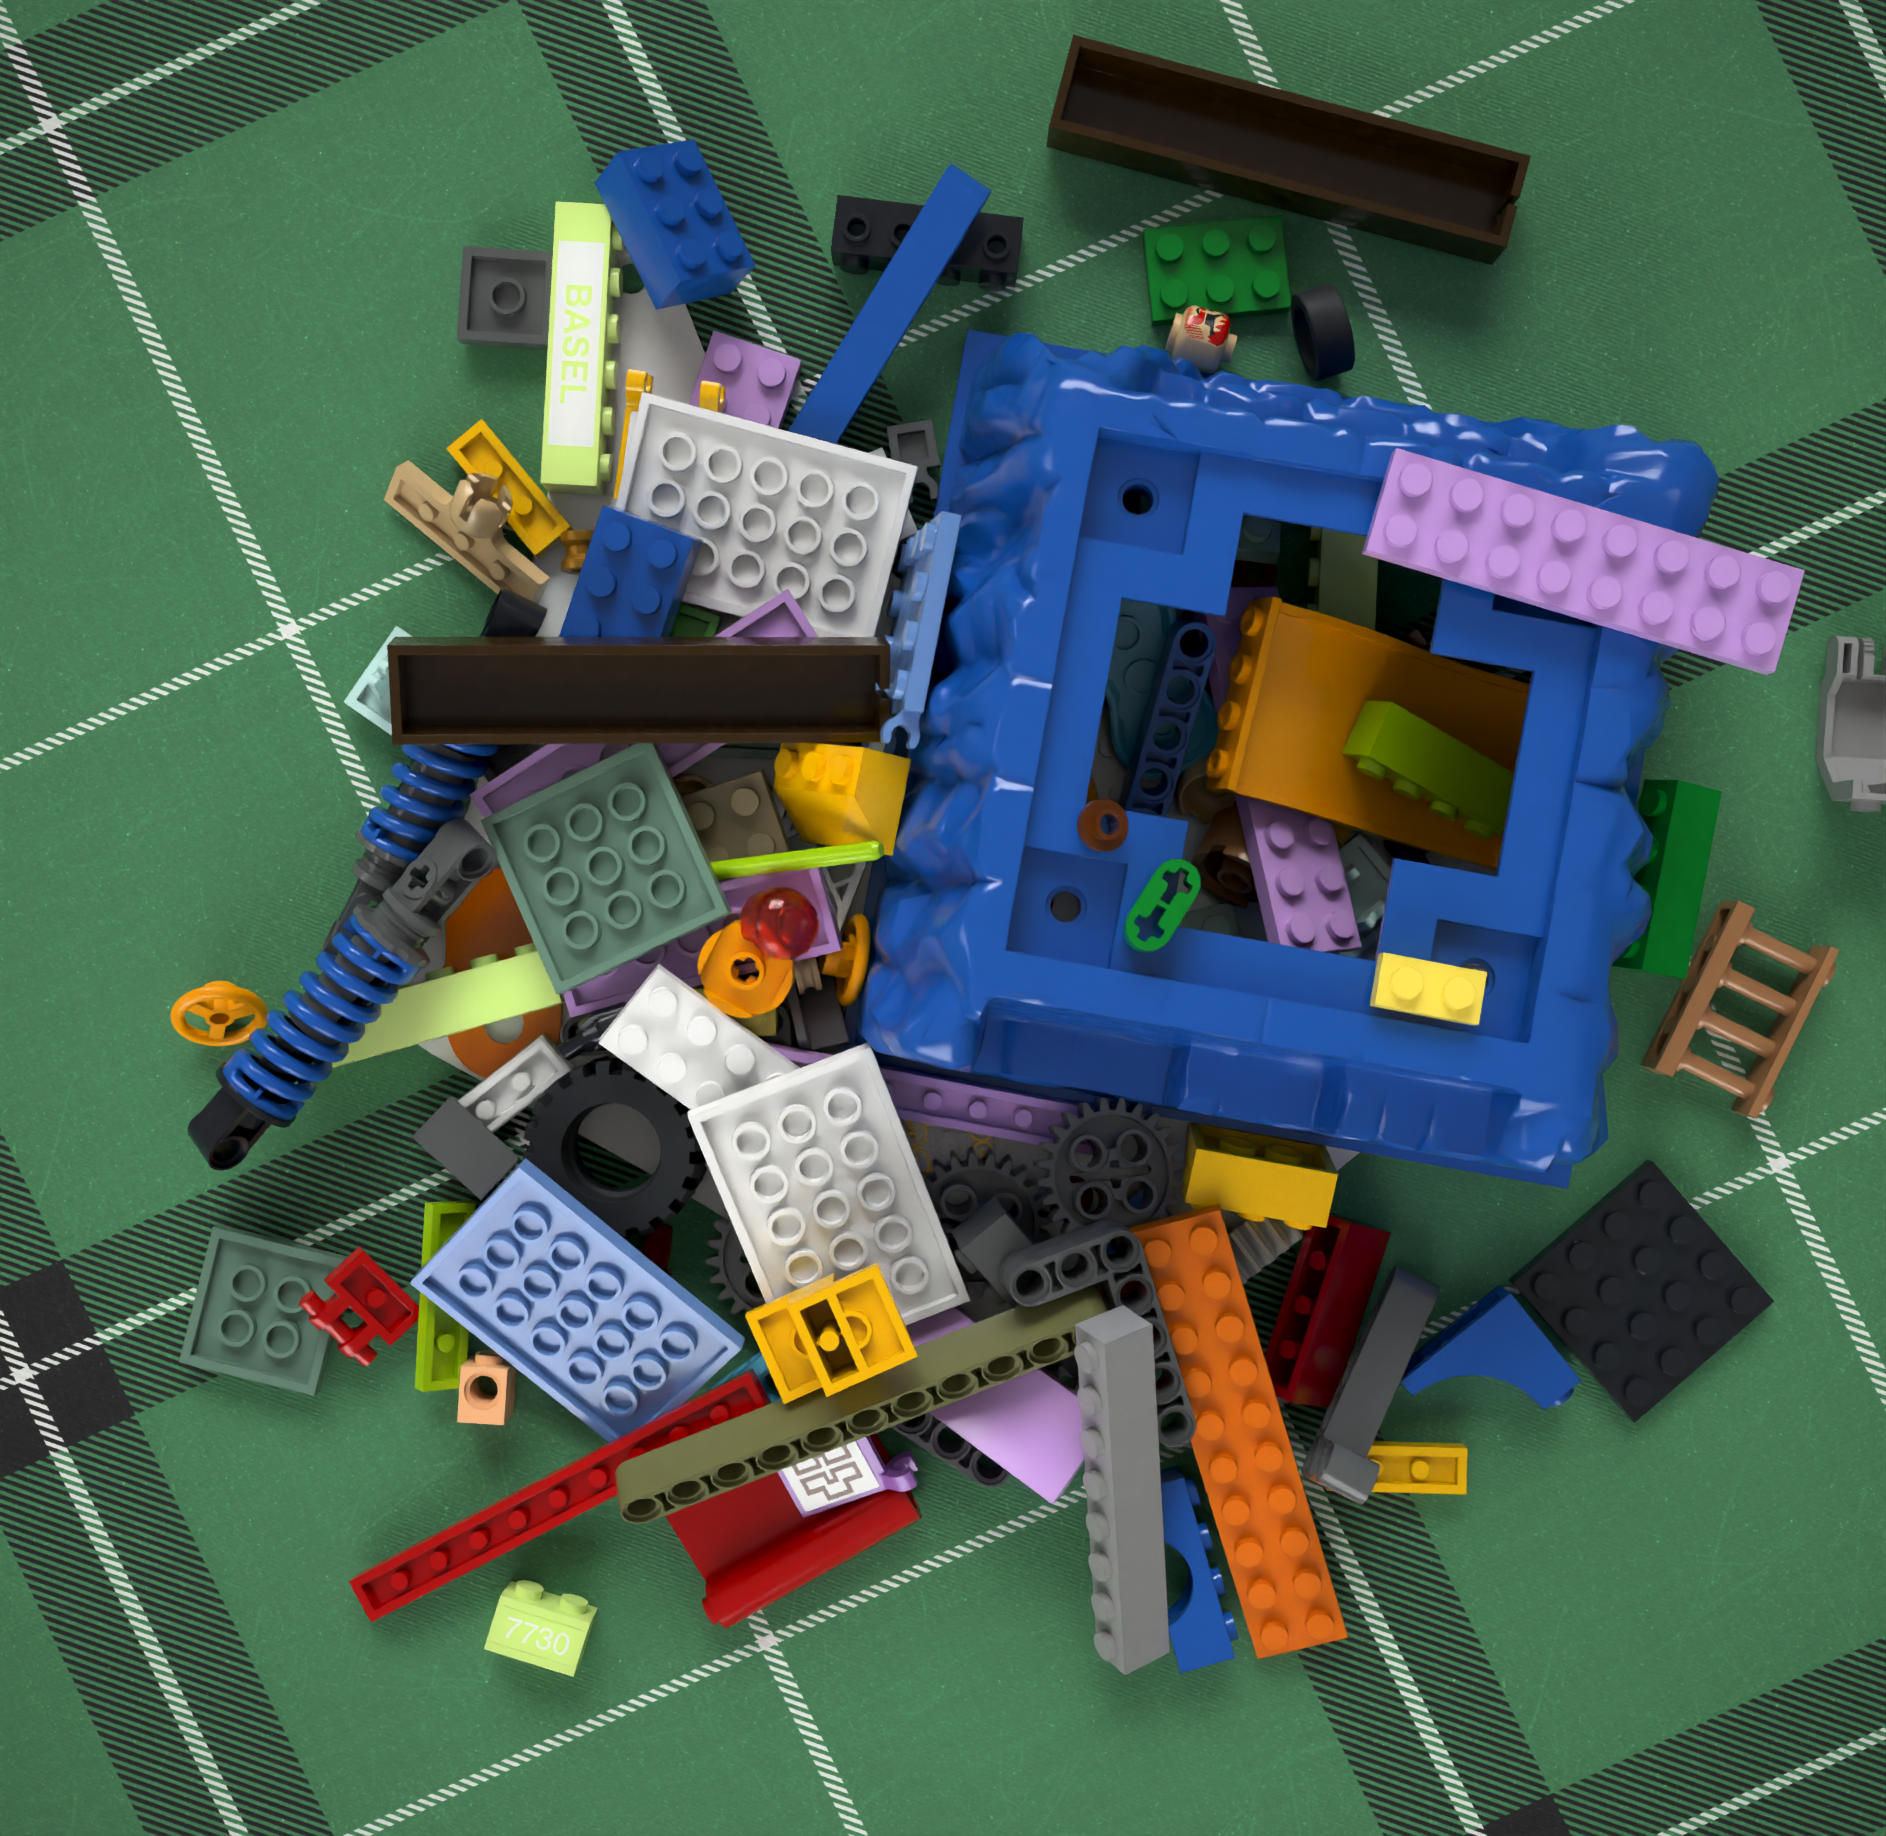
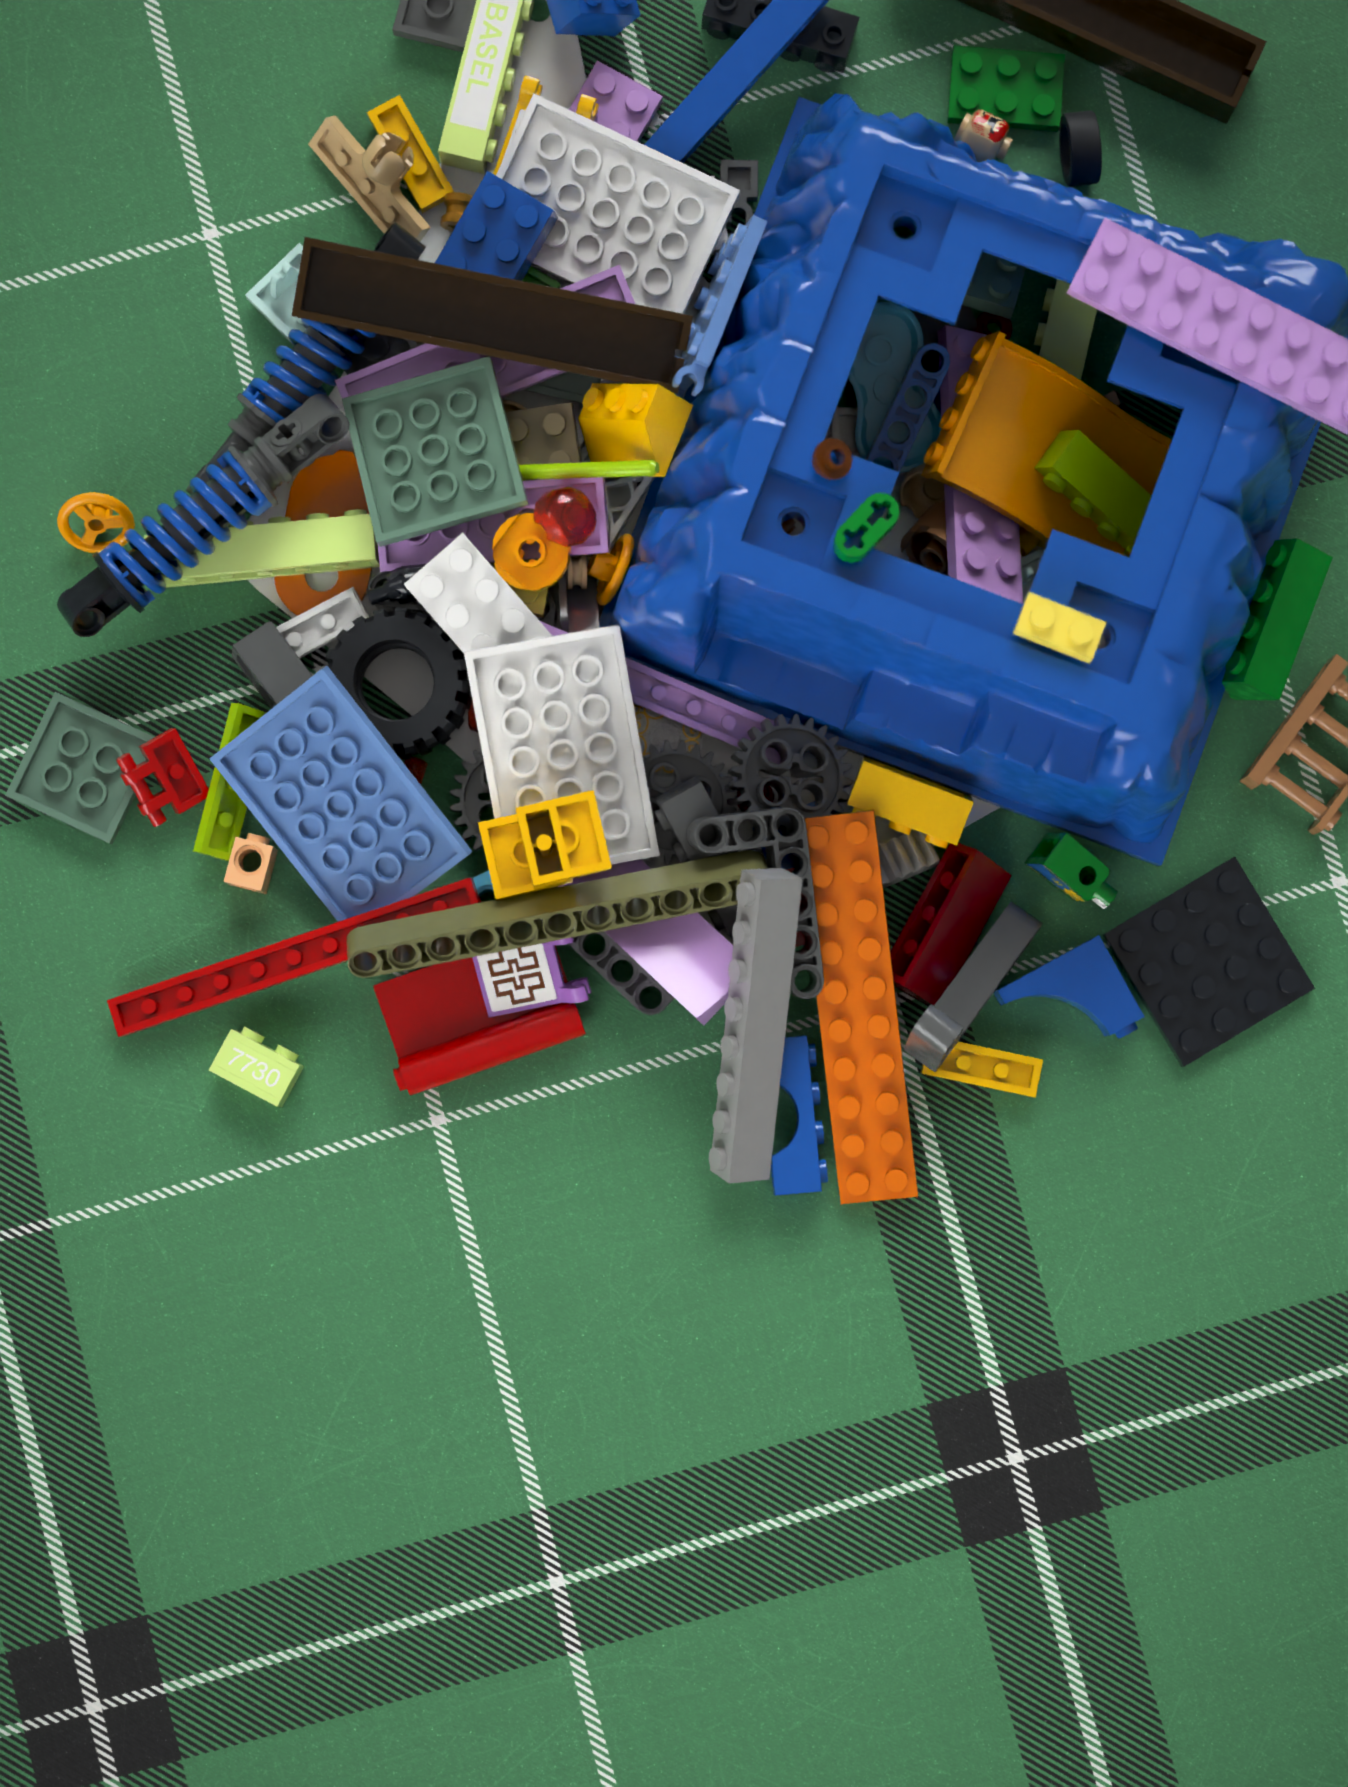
camera: 10 degrees right, 5 degrees down
(1462, 1217) = (1061, 859): none -> green torso

